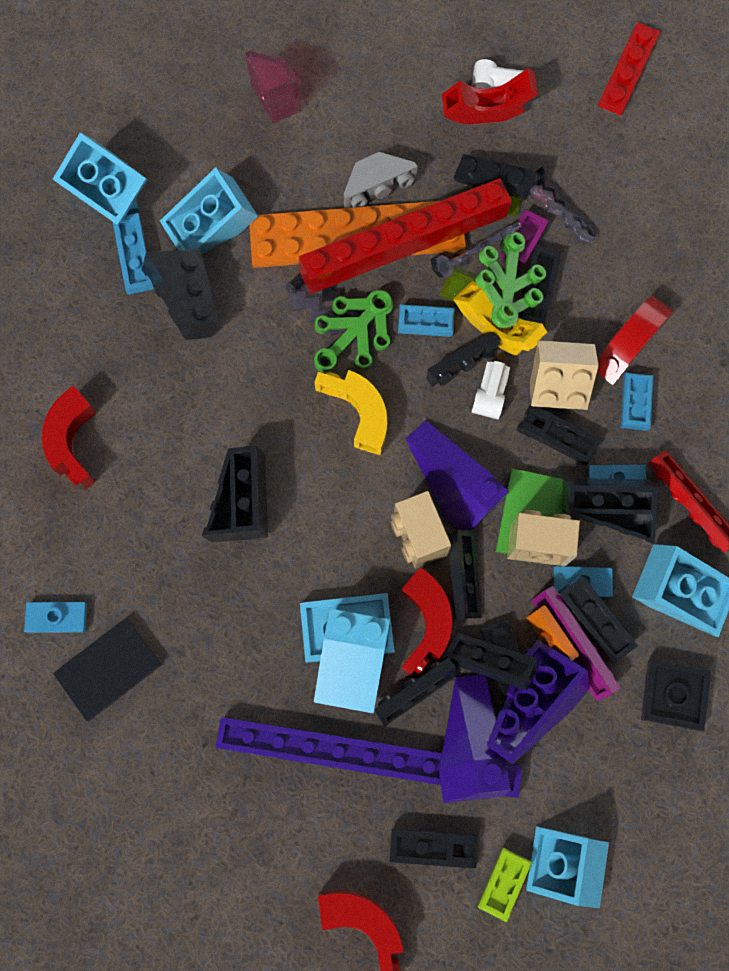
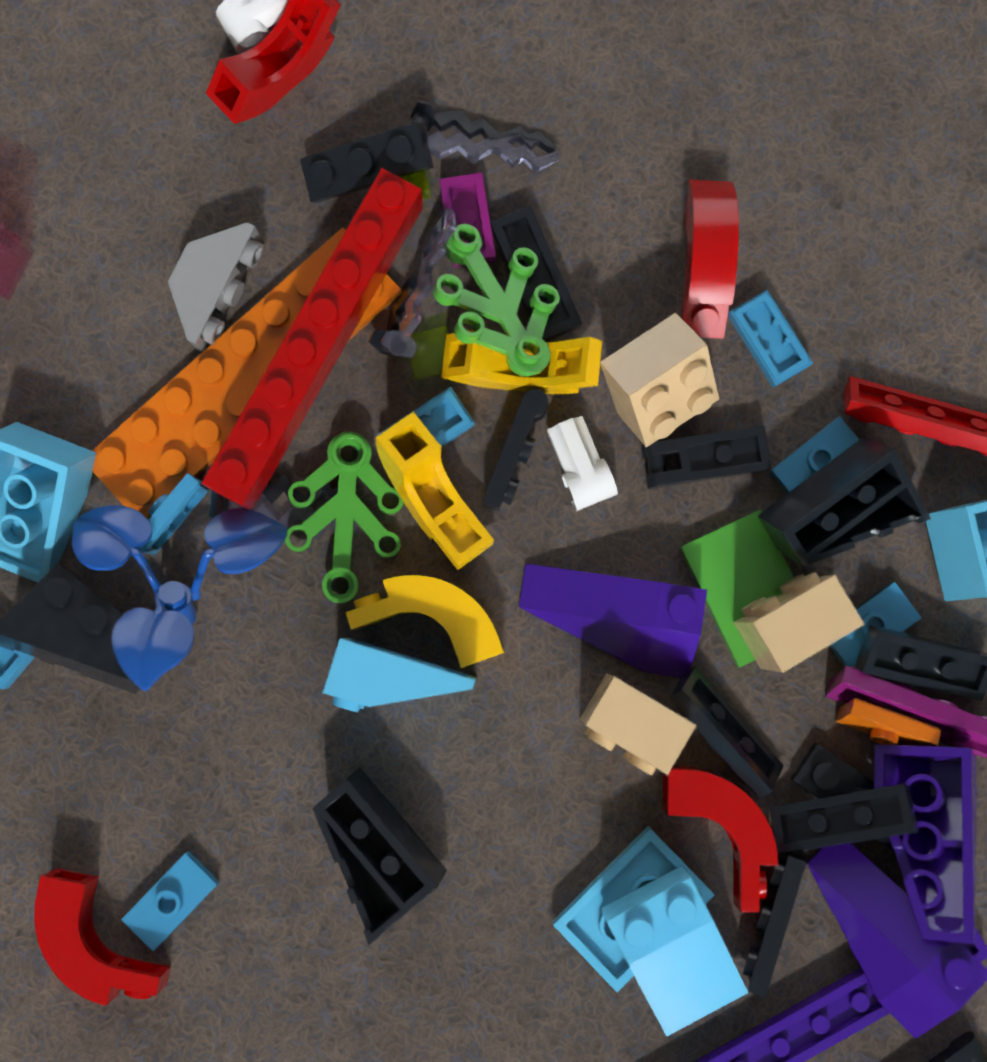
camera: 35 degrees left, 10 degrees up
(121, 449) = (170, 900): none -> dark azure plate
(216, 307) = (157, 641): none -> blue plant
(270, 269) = (171, 510): none -> dark azure plate
(314, 417) = (378, 676): none -> medium azure slope
(404, 340) = (417, 473): none -> yellow arch

